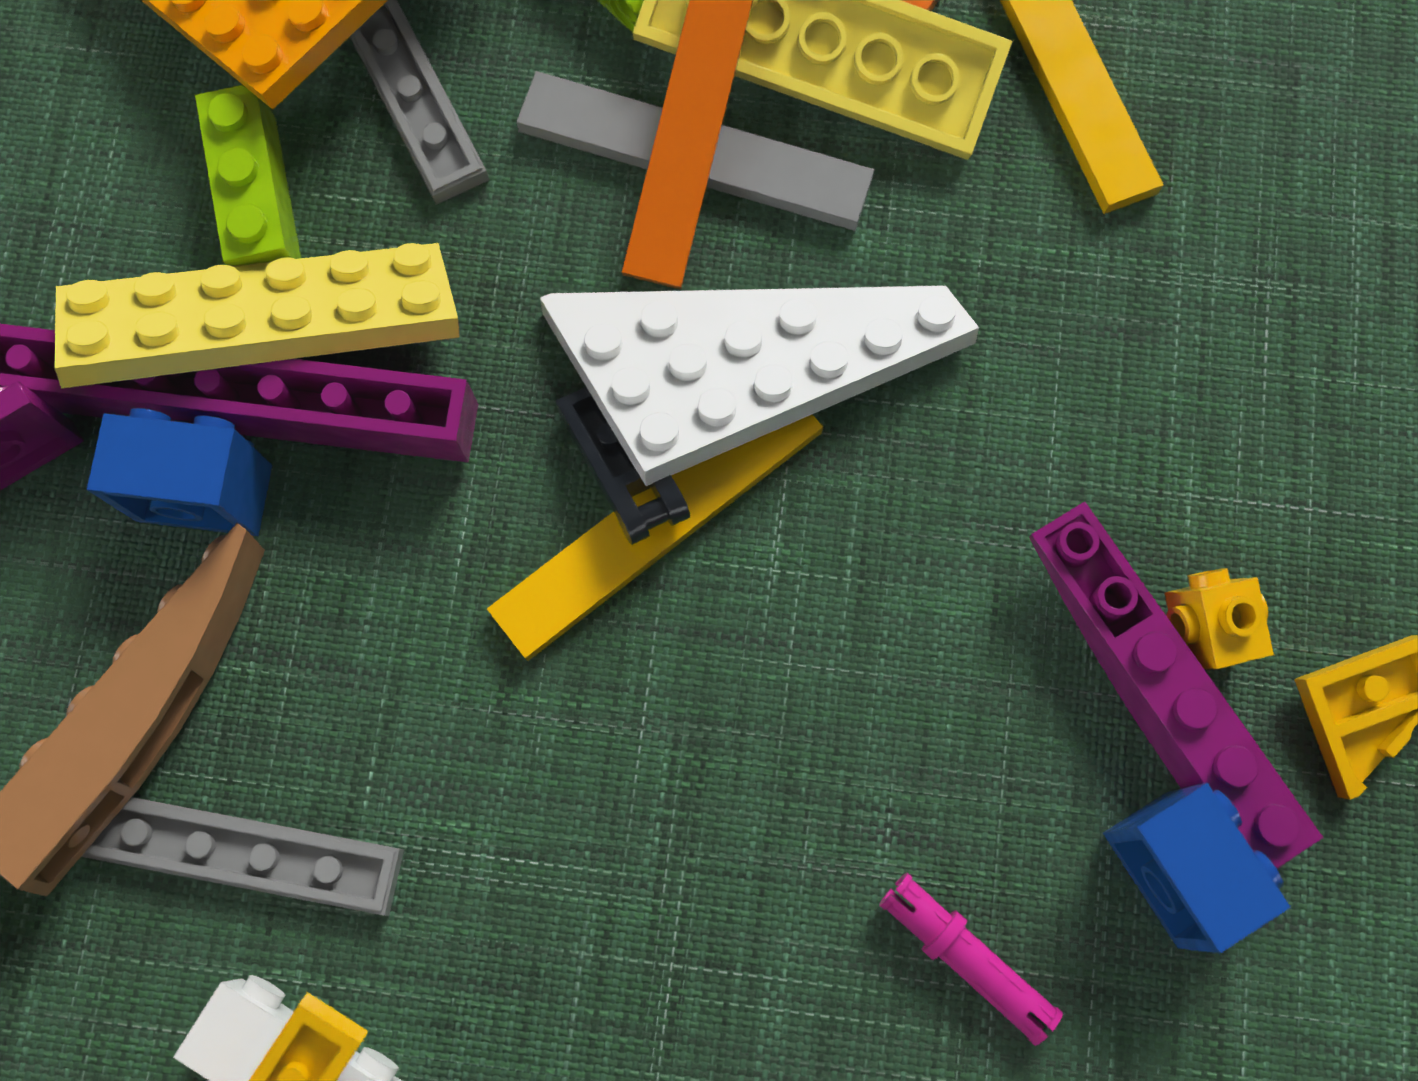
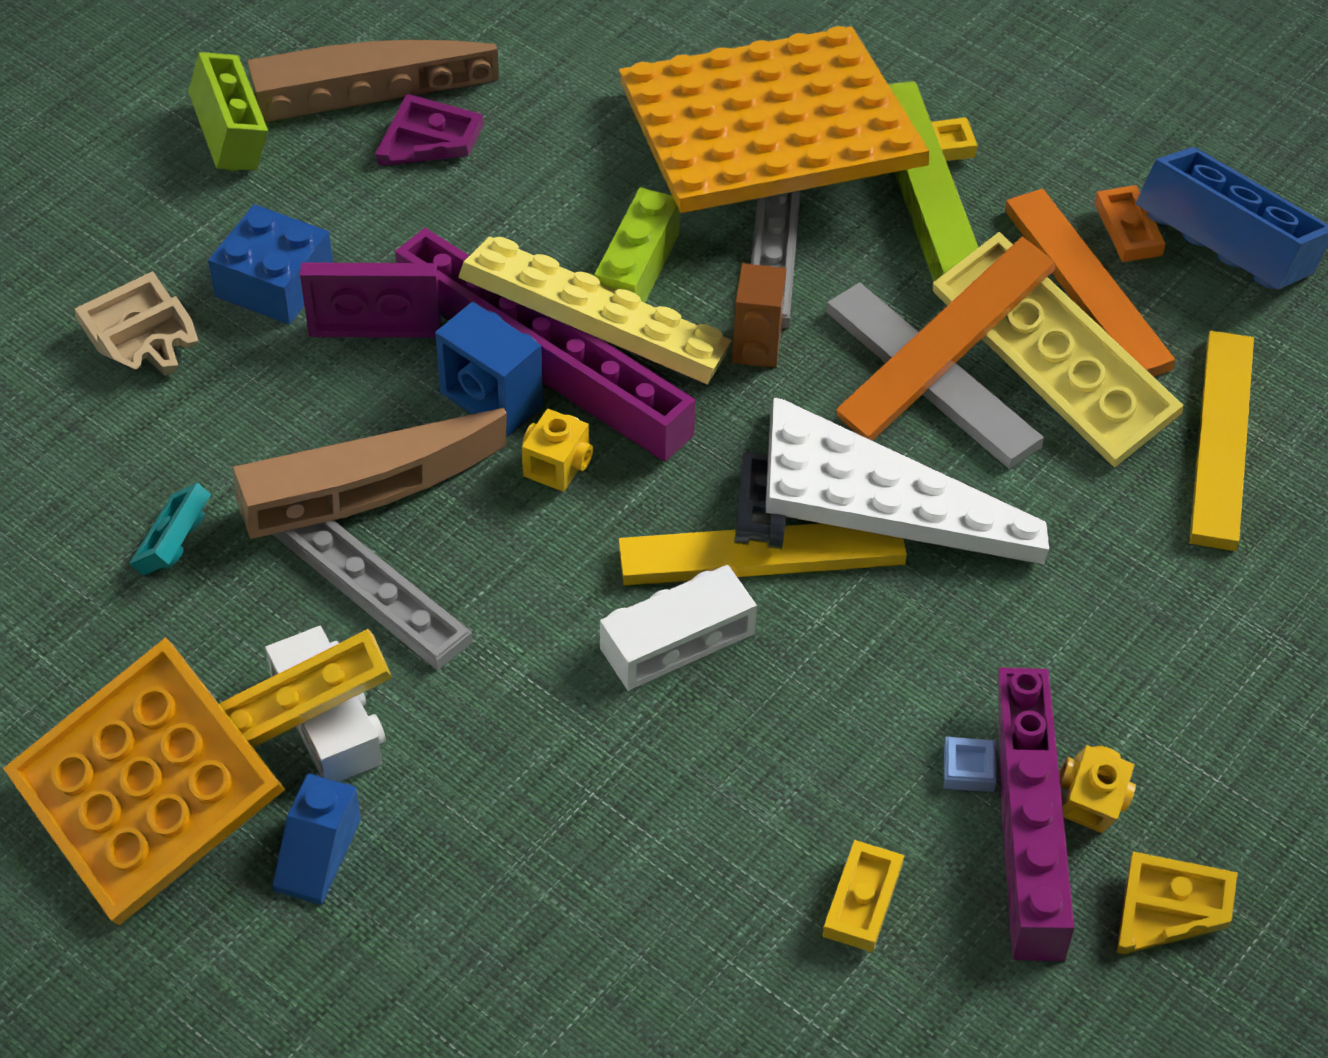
camera: 30 degrees right, 25 degrees down
(335, 535) = (556, 449): none -> yellow brick
(458, 199) = (758, 315): none -> dark orange brick
(630, 690) = (677, 626): none -> white brick
(970, 958) = (783, 869): dark pink pin -> none
(1054, 660) = (969, 764): none -> light blue tile
(1055, 916) = (863, 896): none -> yellow plate
(1198, 868) = (975, 901): blue brick -> none

